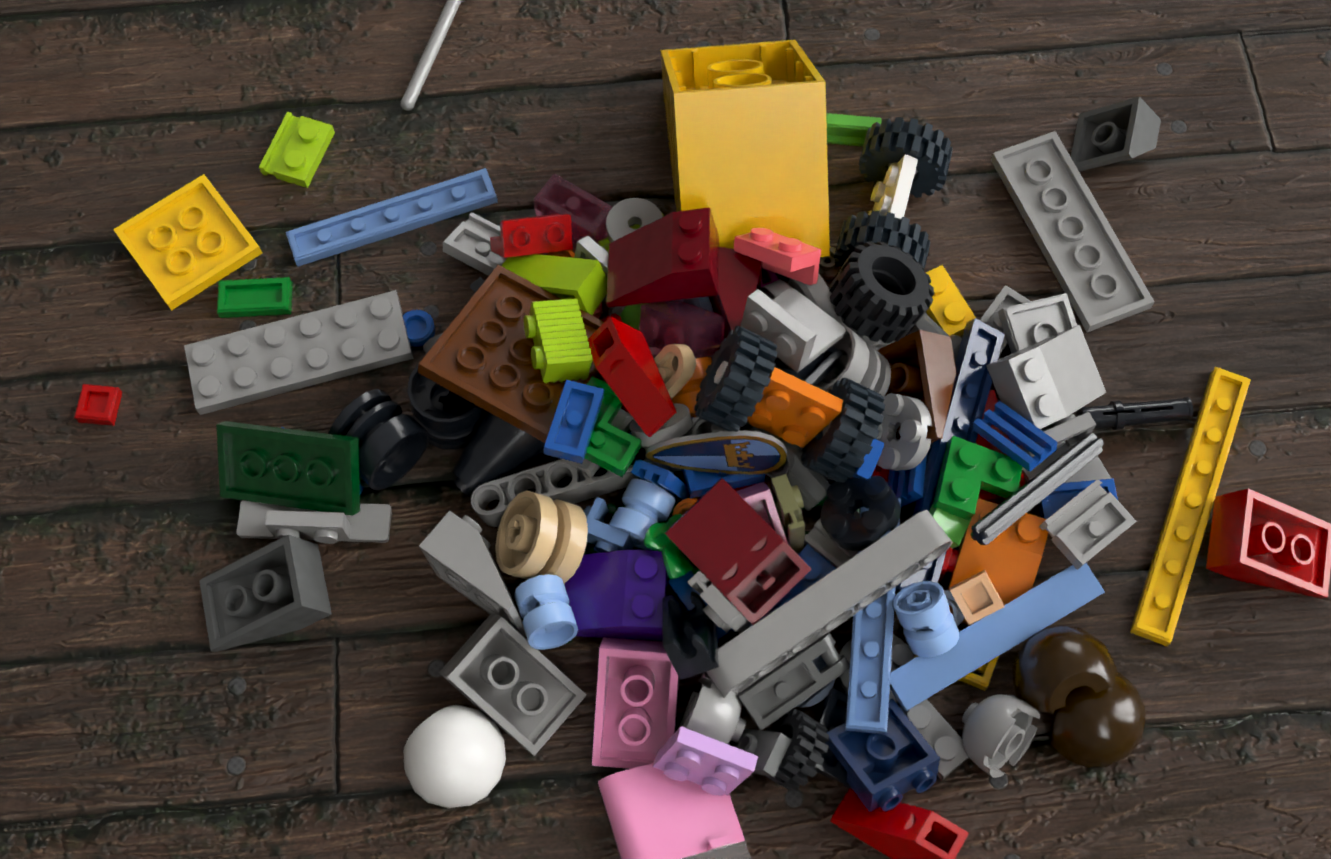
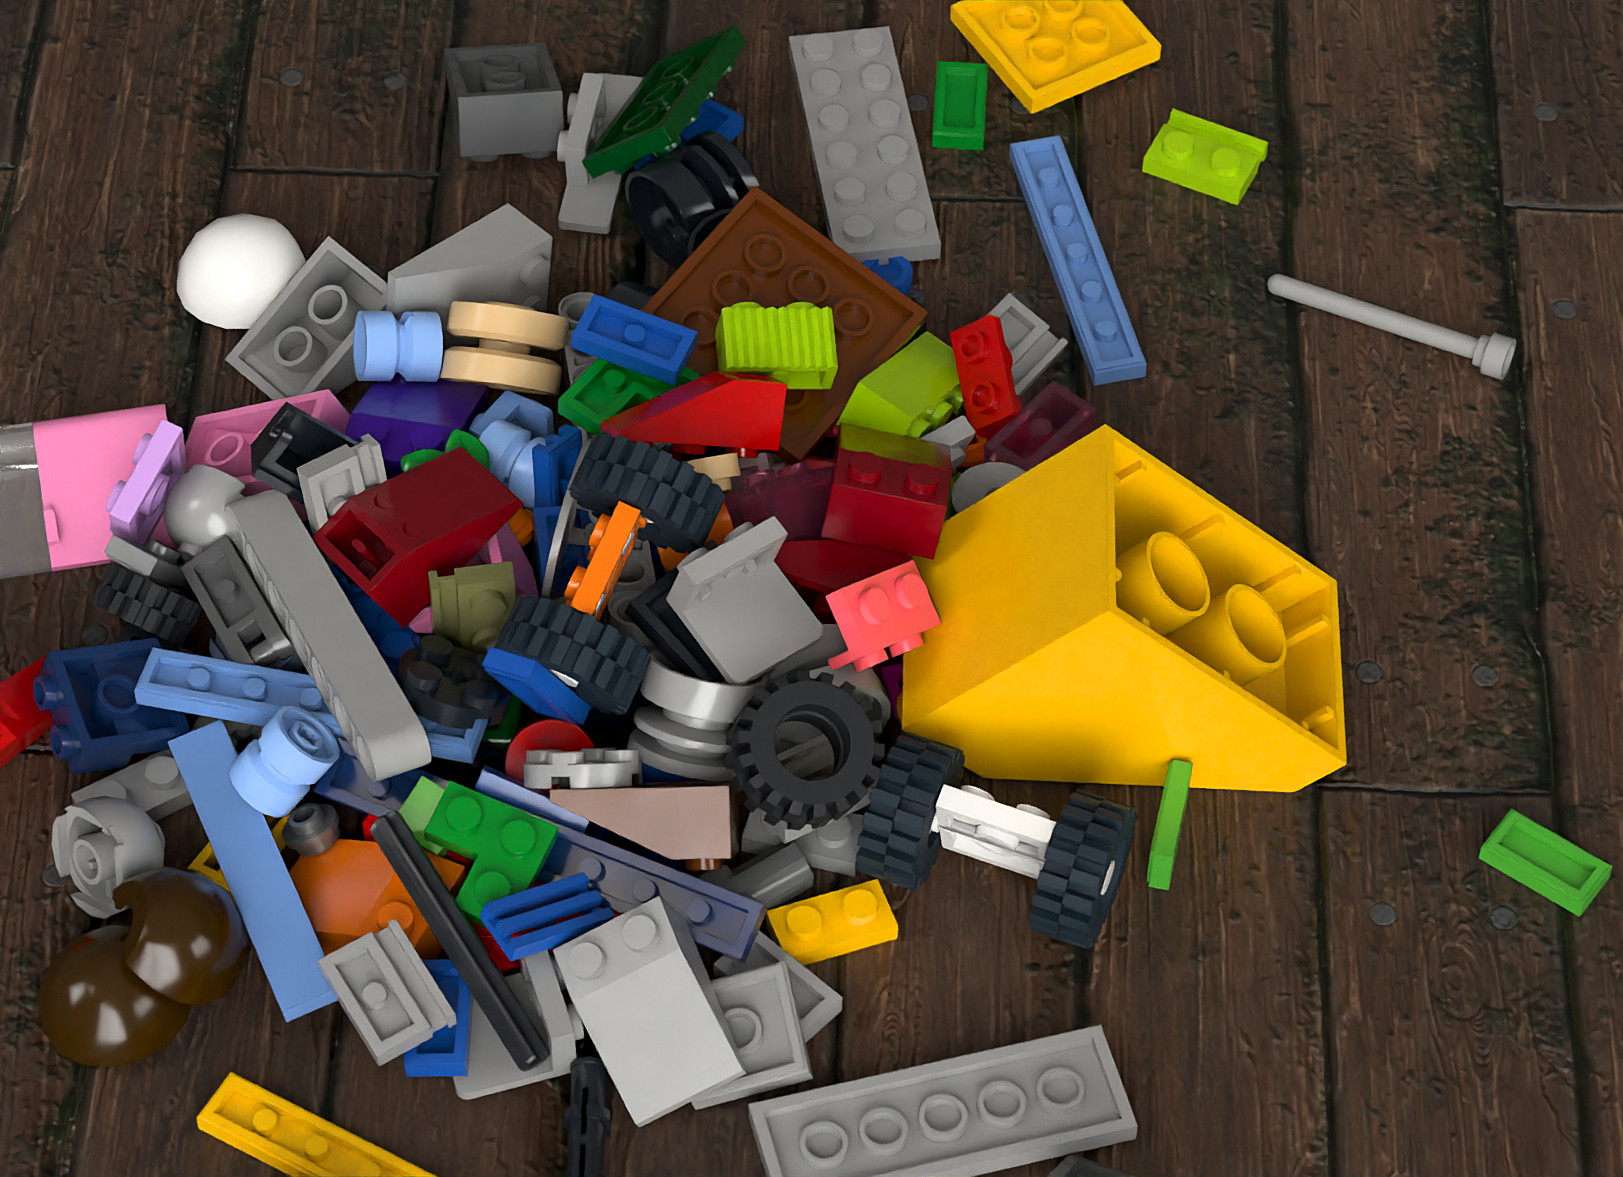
camera: 95 degrees right, 15 degrees down
(976, 597) = (310, 844): light nougat tile -> none

